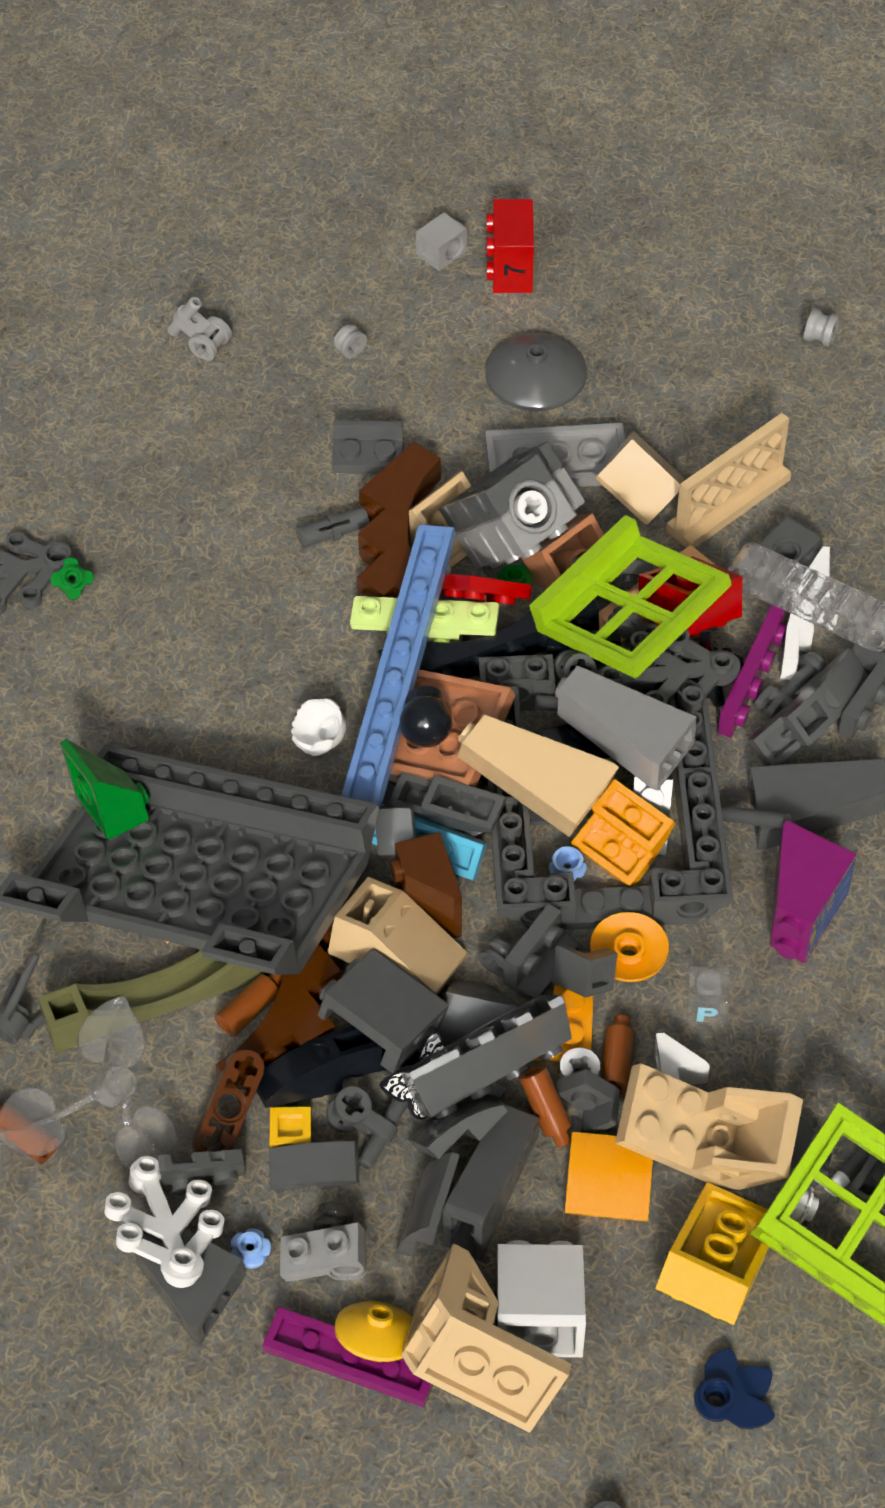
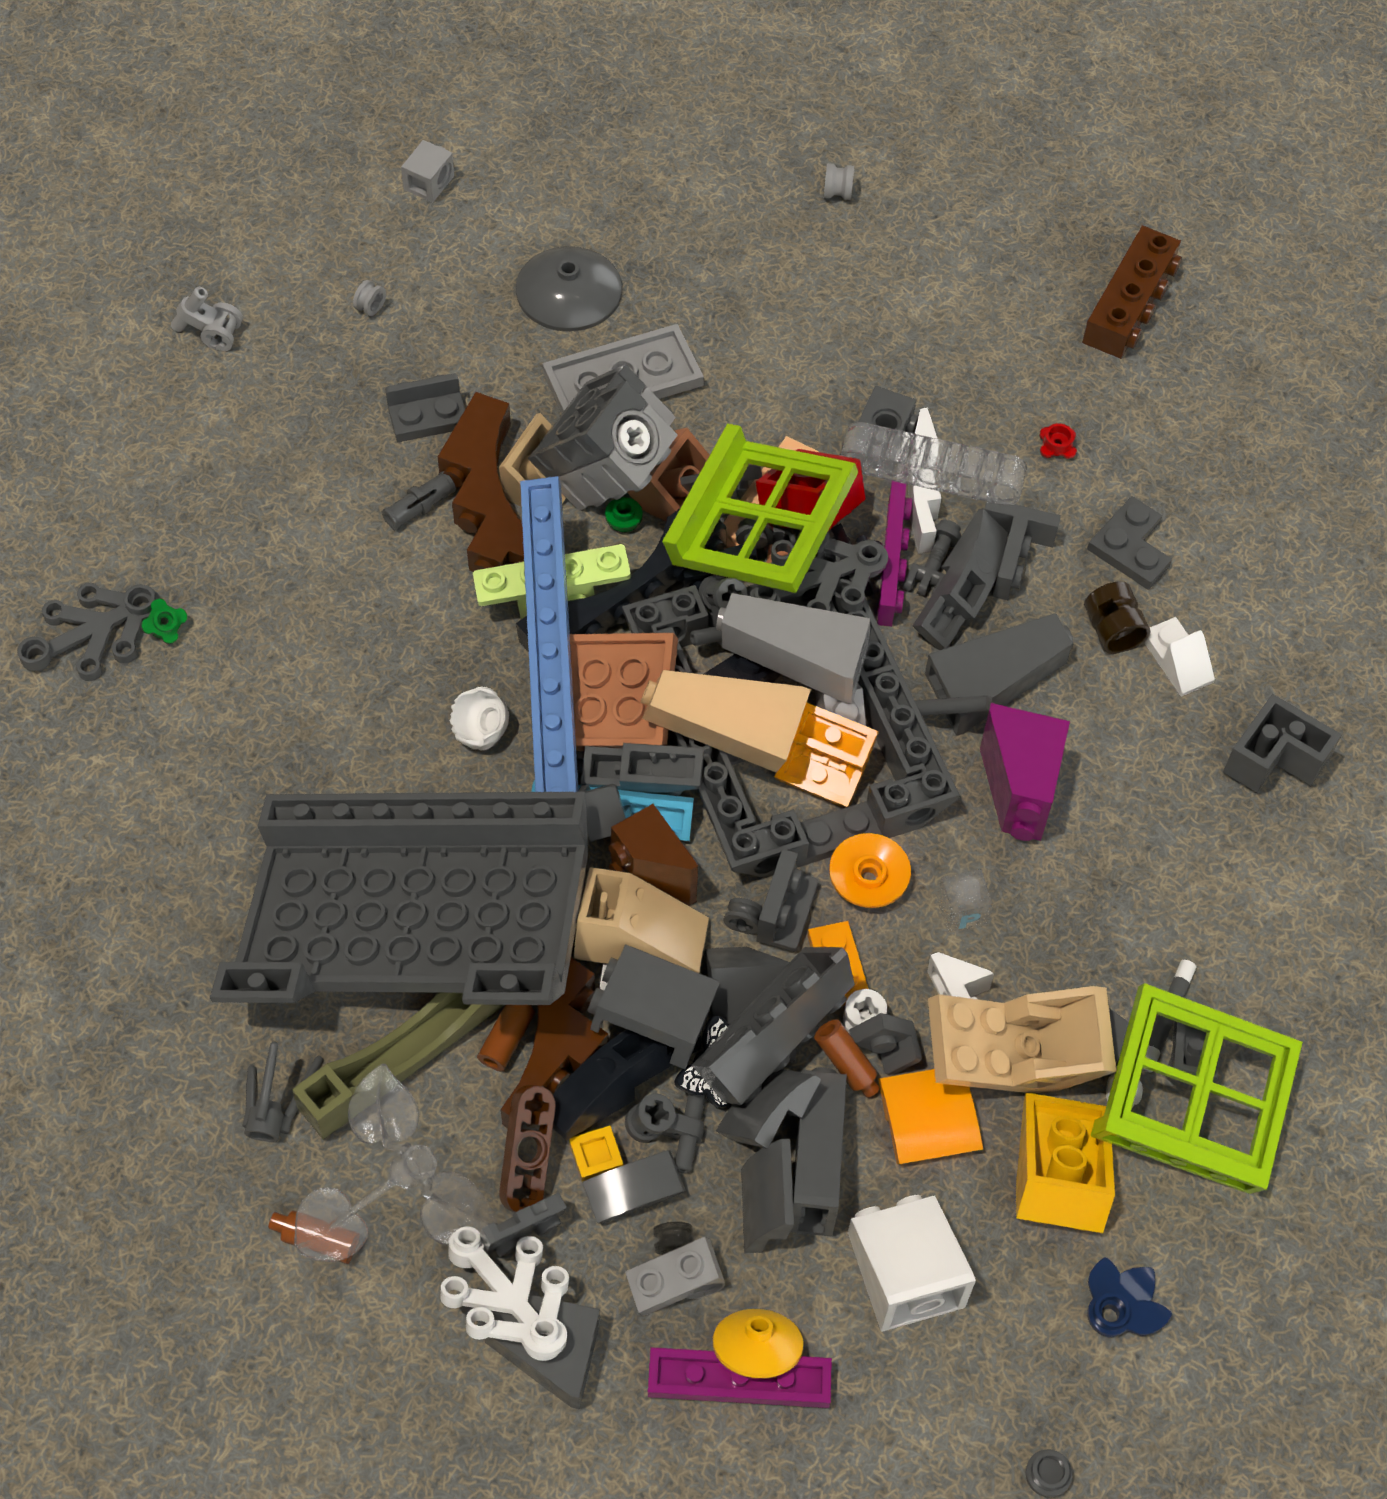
camera: 20 degrees left, 5 degrees up
(105, 791) = (286, 847): green slope -> none
(258, 1255) = (600, 1280): light blue plate -> none
(426, 718) = (596, 685): black piece -> none
(468, 1356) = (851, 1338): tan bracket -> none
(484, 589) = (602, 533): red plate -> none
(511, 246) = (504, 161): red brick -> none
(570, 856) = (774, 791): light blue plate -> none
(584, 973) = (837, 911): dark grey panel -> none
(618, 1053) = (895, 983): dark orange cylinder -> none
(640, 478) = (716, 378): slope -> none
(731, 484) = (809, 367): tan fence -> none

